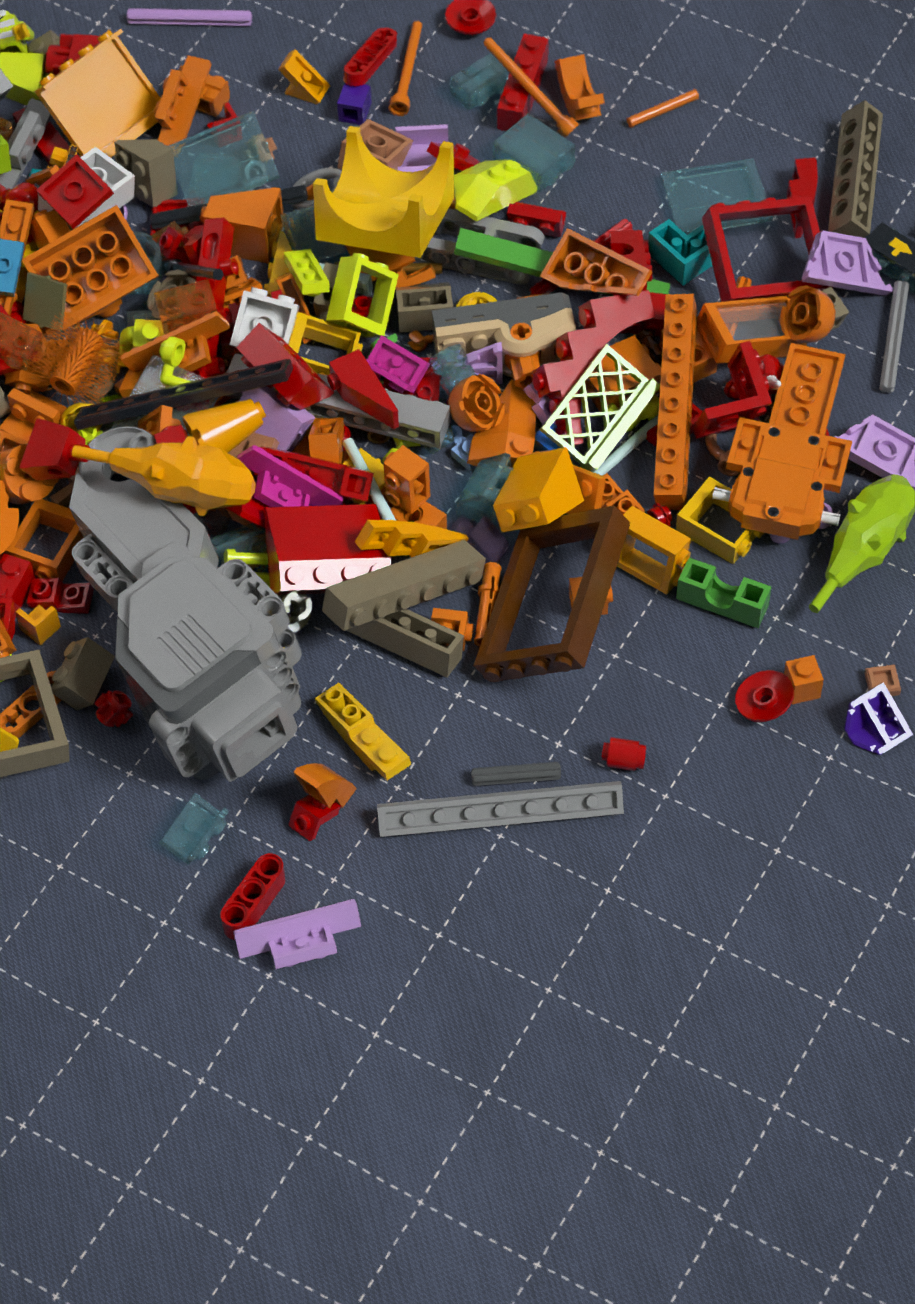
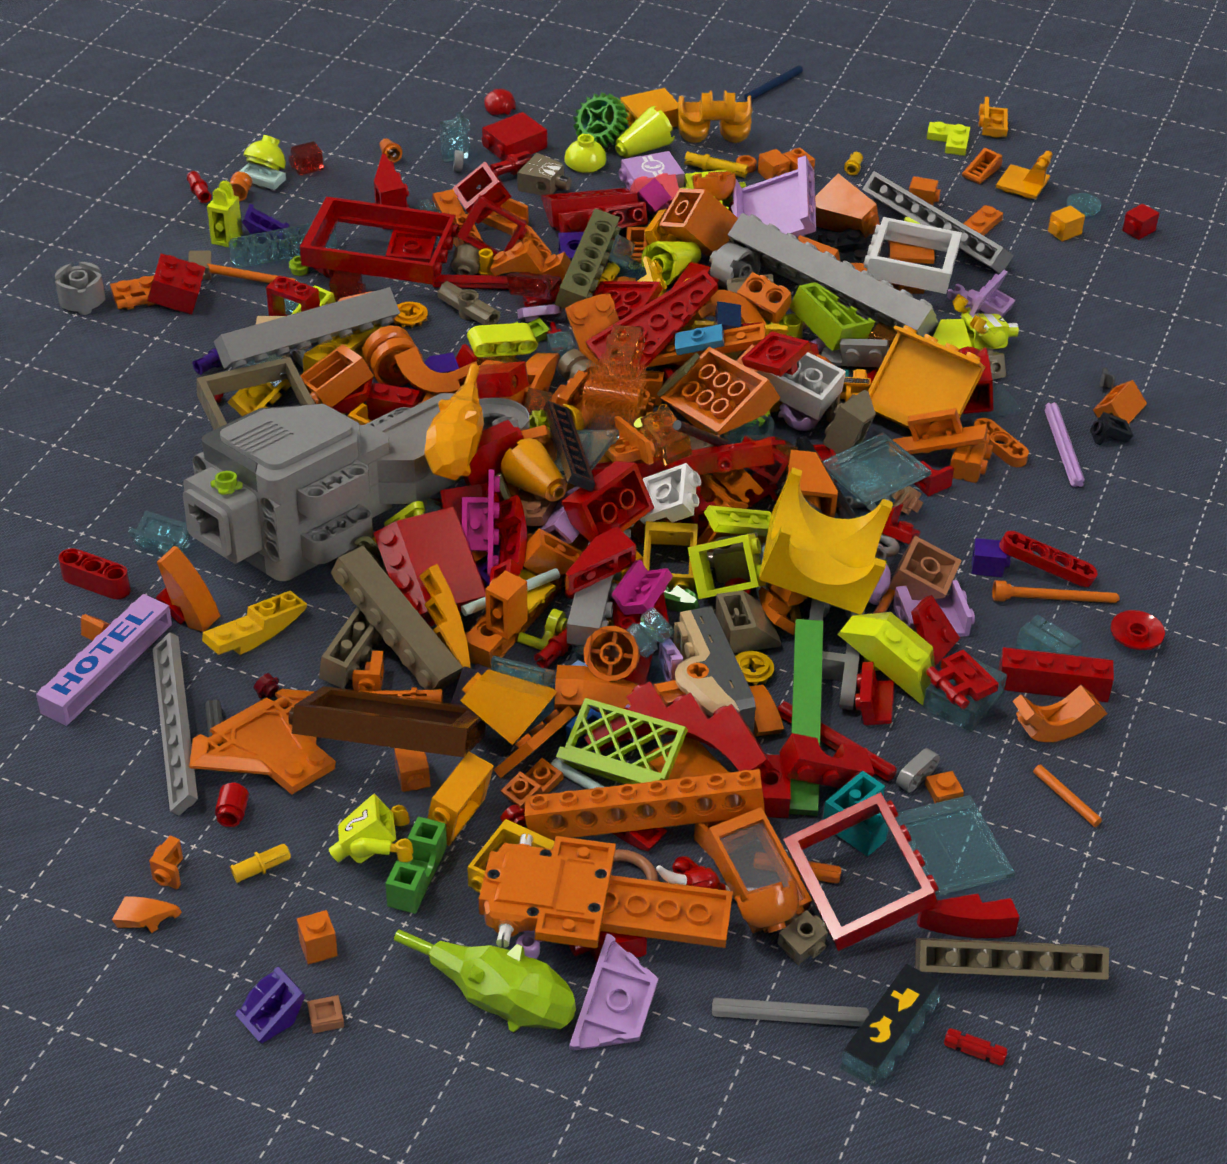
camera: 80 degrees right, 15 degrees down
(157, 66) = (1012, 452): none -> orange beam
(171, 353) = (606, 434): neon yellow plate -> none
(241, 685) = (226, 482): none -> lime plate
(295, 167) = (899, 530): none -> red slope
(300, 935) = (52, 605): lavender bracket -> none
(304, 79) = (1006, 514): light orange slope -> none
(339, 890) = (92, 626): none -> orange slope
(396, 879) = (104, 659): none -> lavender brick
(436, 469) = (556, 647): none -> red pin
(454, 725) = (266, 686): none -> dark red plate
(536, 136) = (969, 676): none -> red plate
(538, 721) = (262, 743): none -> orange plate
(564, 123) = (1008, 712): orange piece -> none
(592, 267) = (792, 712): orange wedge -> none
(628, 203) = (917, 770): none -> light grey beam
(646, 191) = (944, 786): none -> orange plate
(684, 627) = (371, 832): none -> neon yellow torso
(697, 813) = (165, 863): none -> orange bracket
(702, 731) = (260, 862): none -> yellow axle
(752, 391) = (672, 850): red bracket -> none
(758, 833) = (141, 912): none -> orange slope
(759, 688) = (293, 904): red dish -> none
(844, 263) = (861, 941): lavender wing -> none

